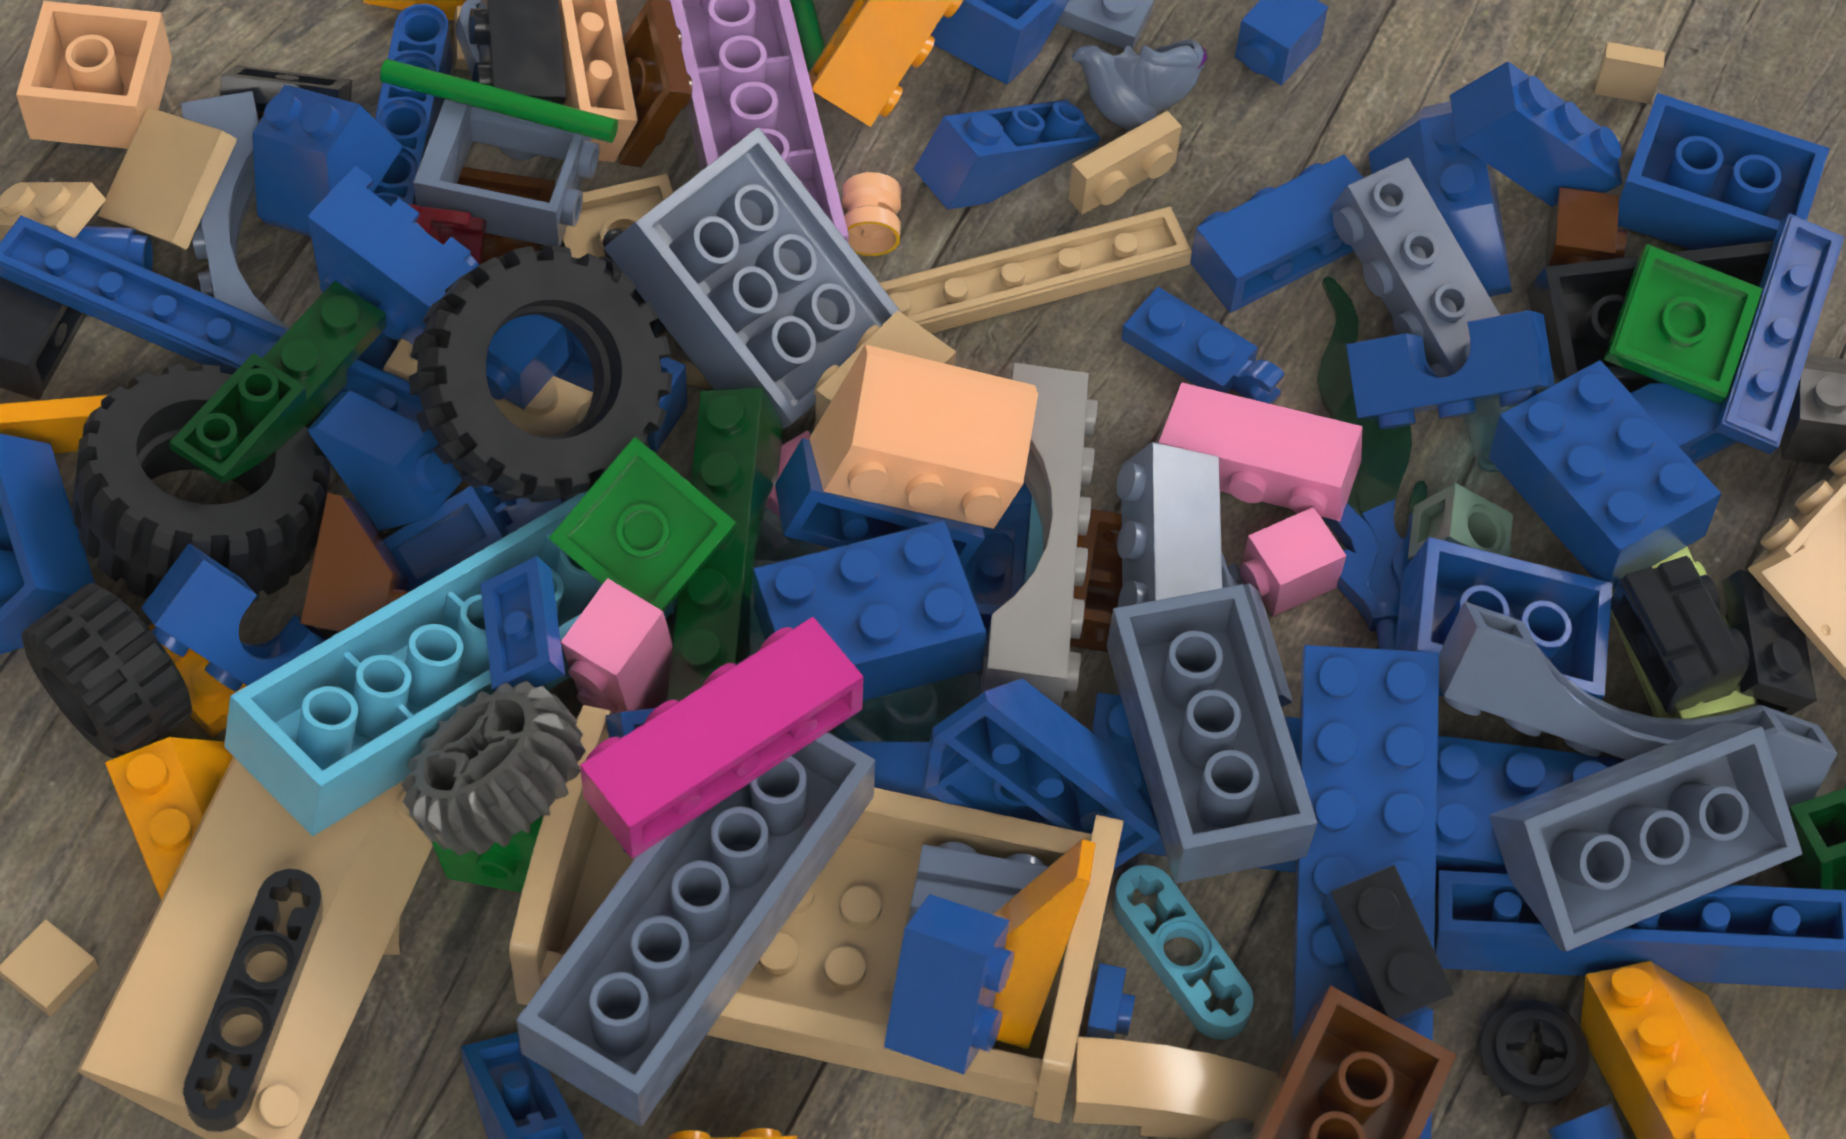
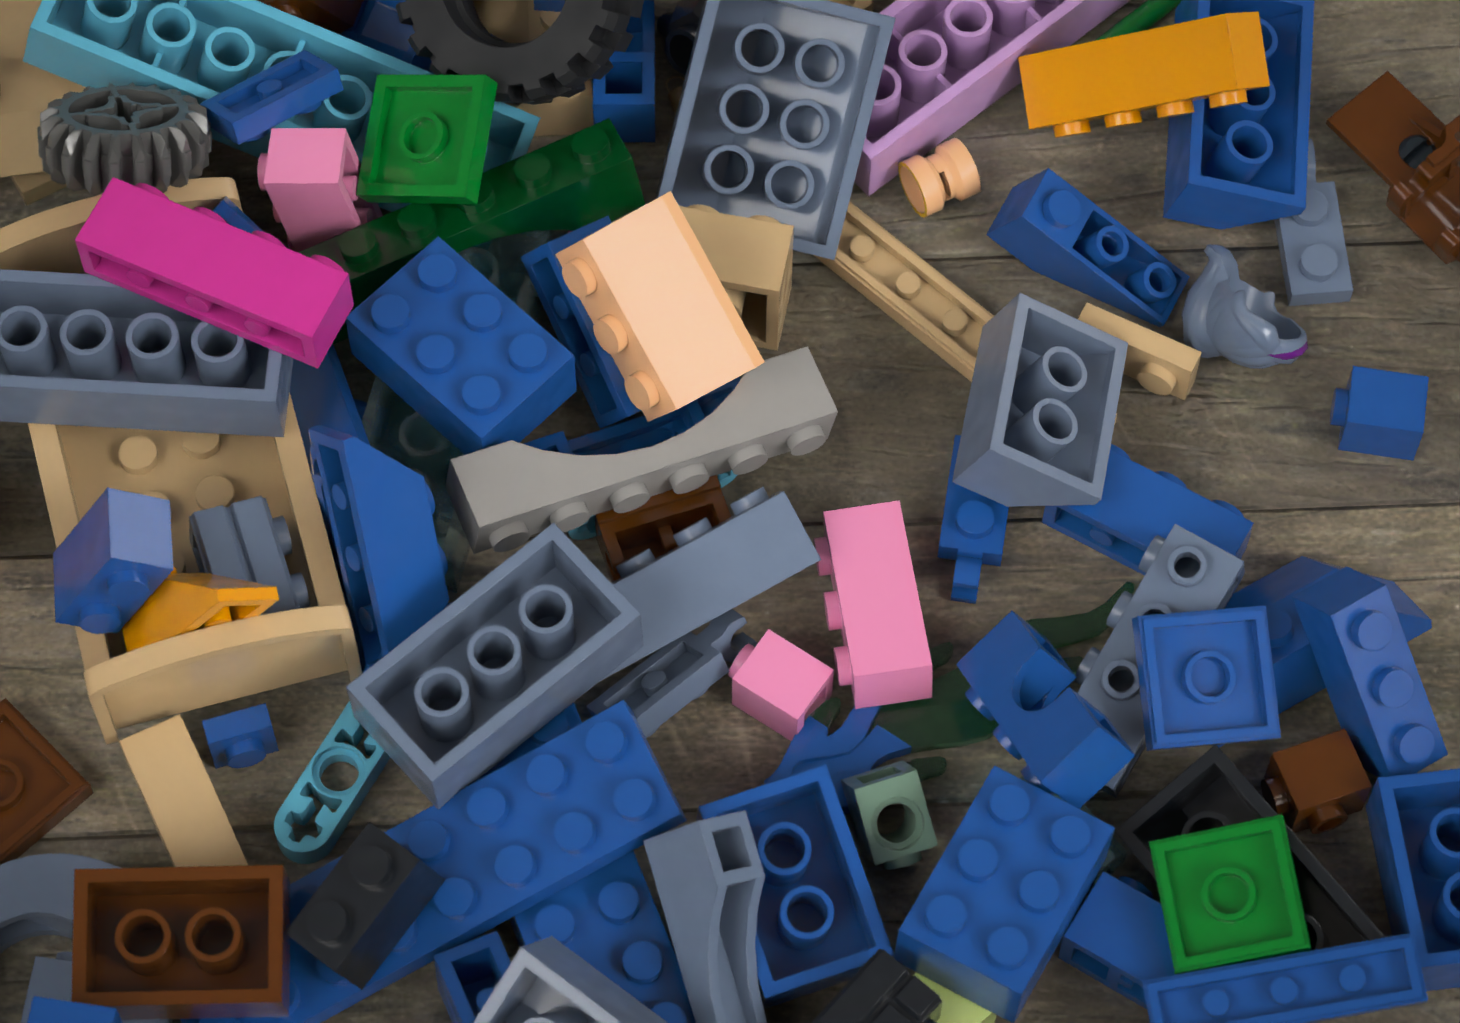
camera: 65 degrees right, 5 degrees up
(1159, 240) = (1040, 408): none -> sand blue slope
(1488, 240) = (1206, 678): none -> blue plate

